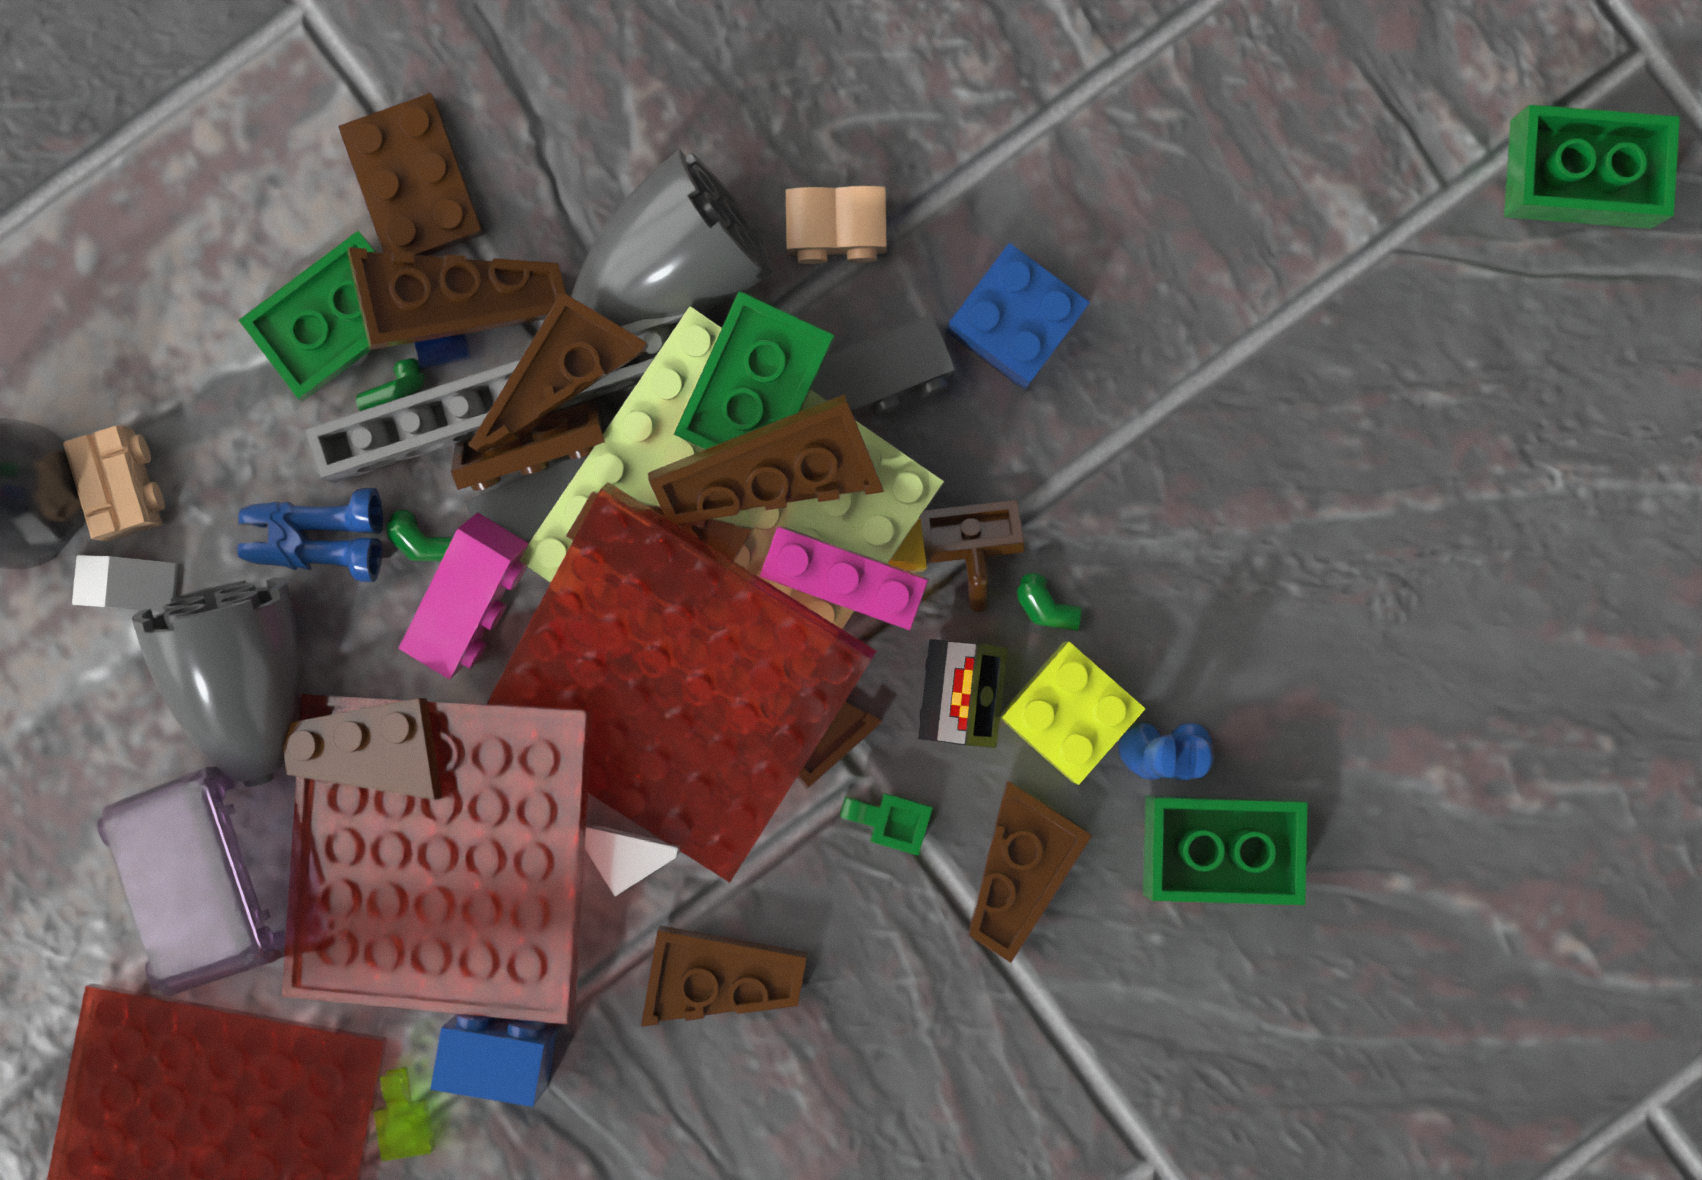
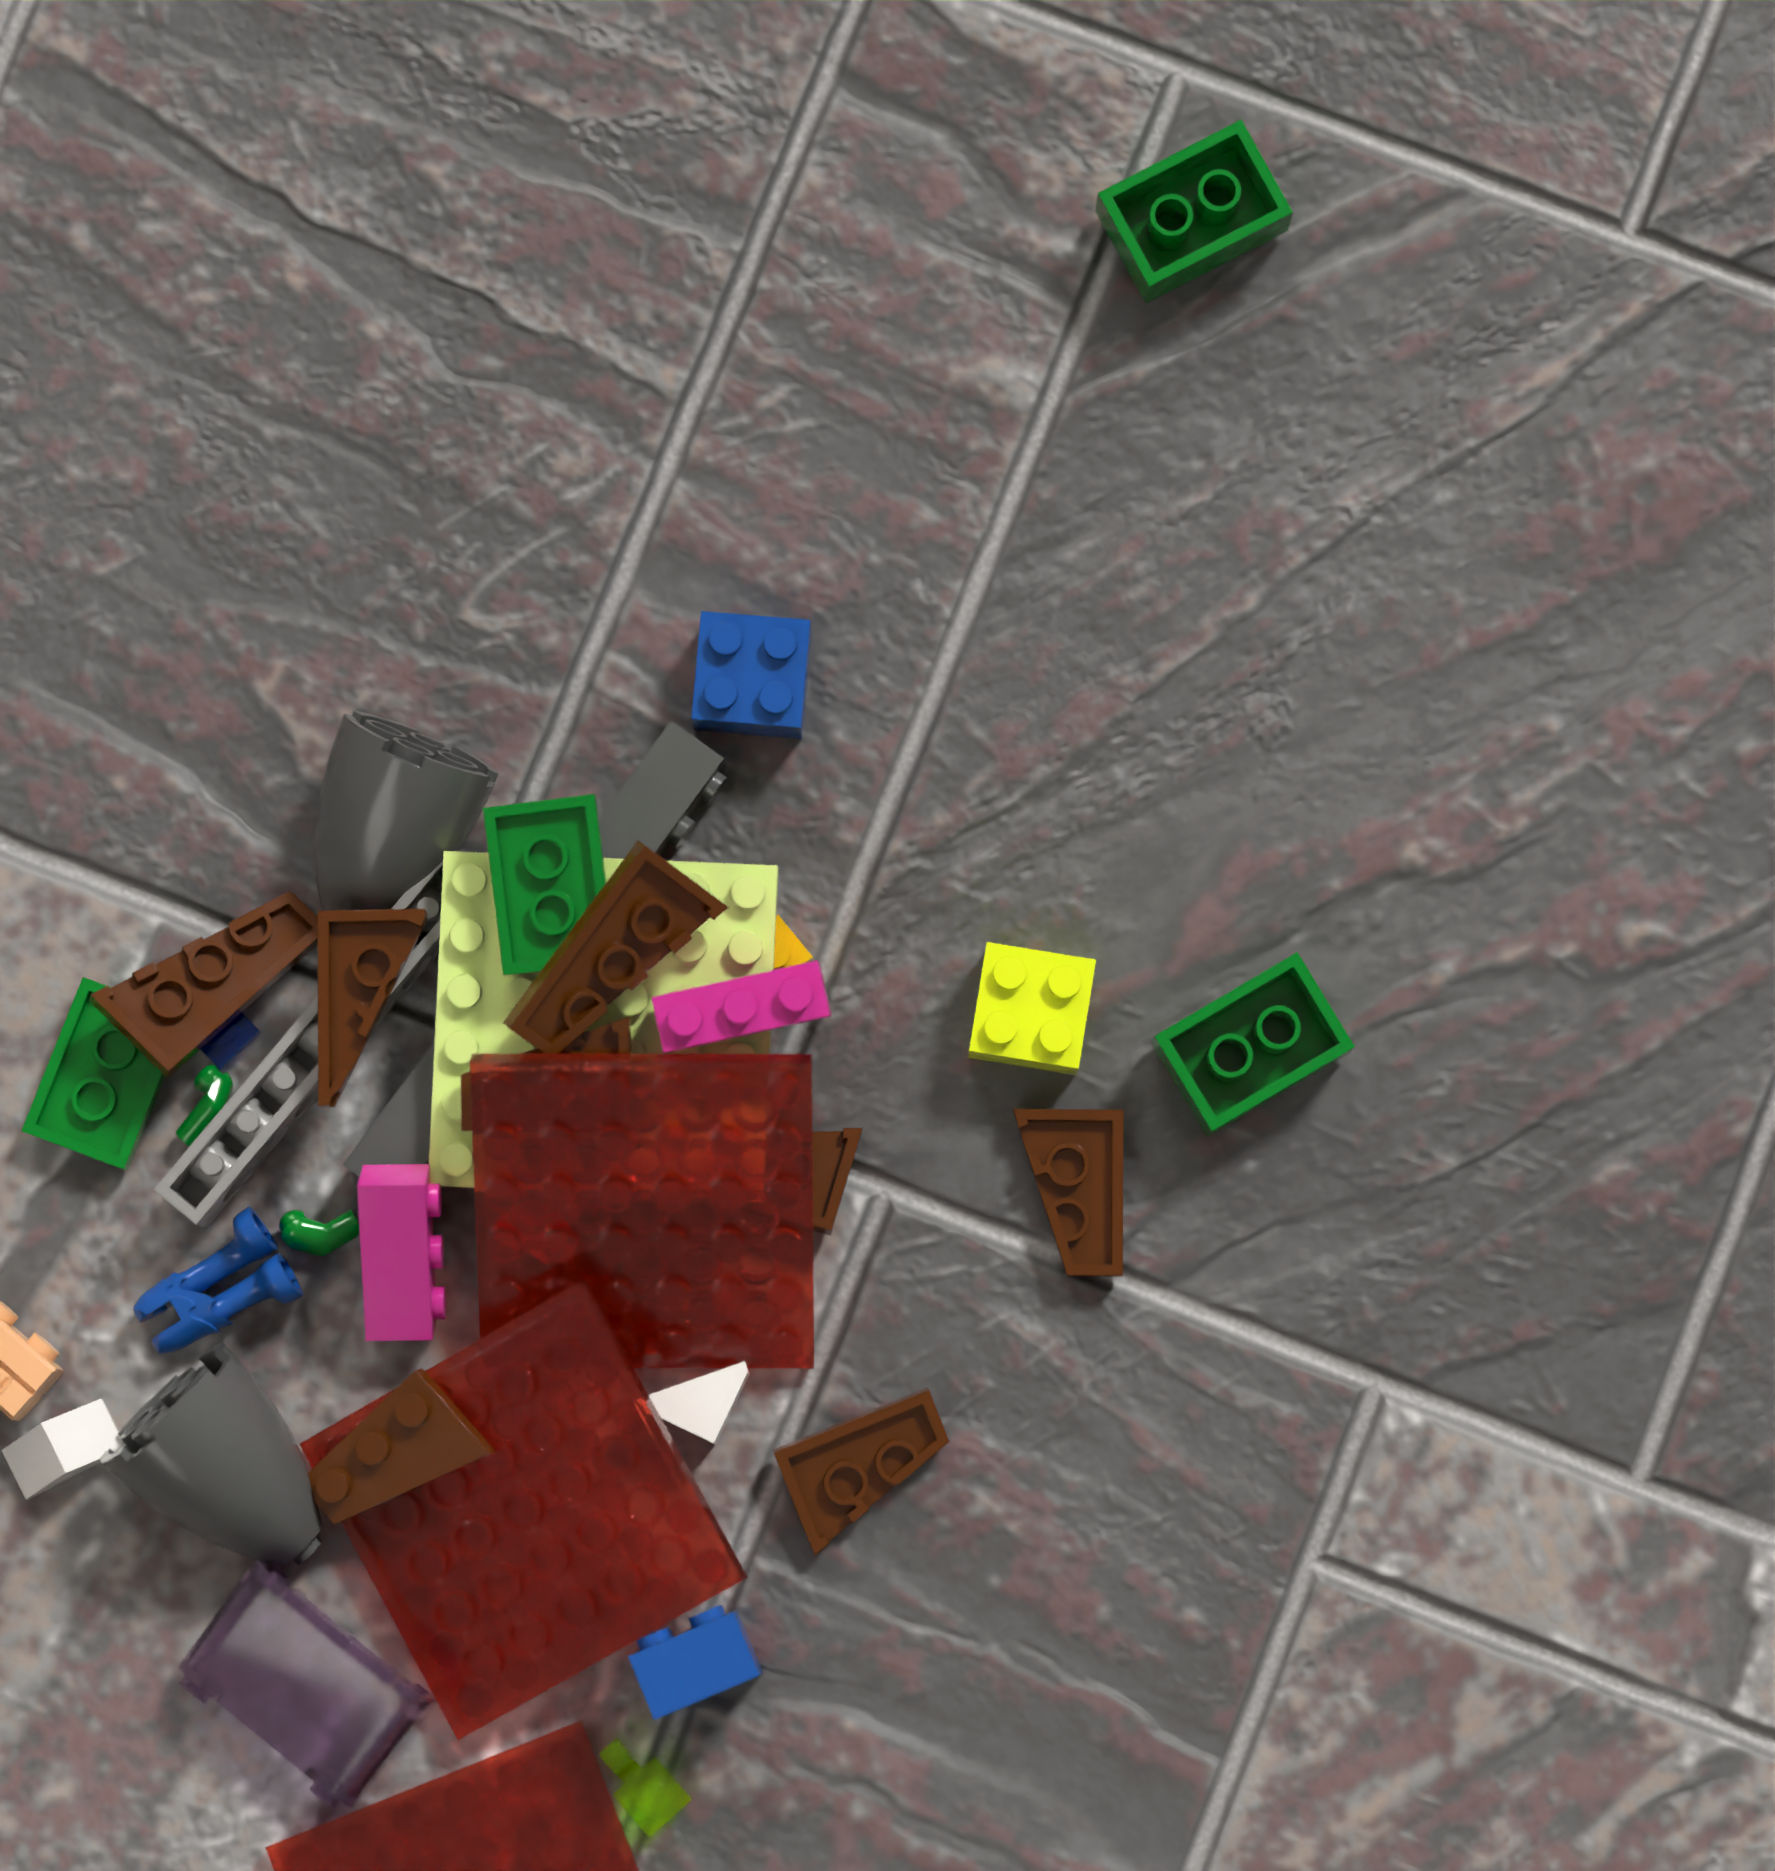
camera: 25 degrees left, 5 degrees down
(411, 178) = (100, 898): reddish brown plate -> none
(560, 433) = (399, 1038): reddish brown plate -> none
(836, 222) = (528, 692): light nougat brick -> none
(895, 822) = (932, 1212): green plate -> none
(962, 693) = (919, 1052): brick -> none
(972, 535) = (837, 903): reddish brown plate -> none
(1042, 608) = (944, 929): green arm -> none
(1177, 755) = (1155, 979): blue piece -> none

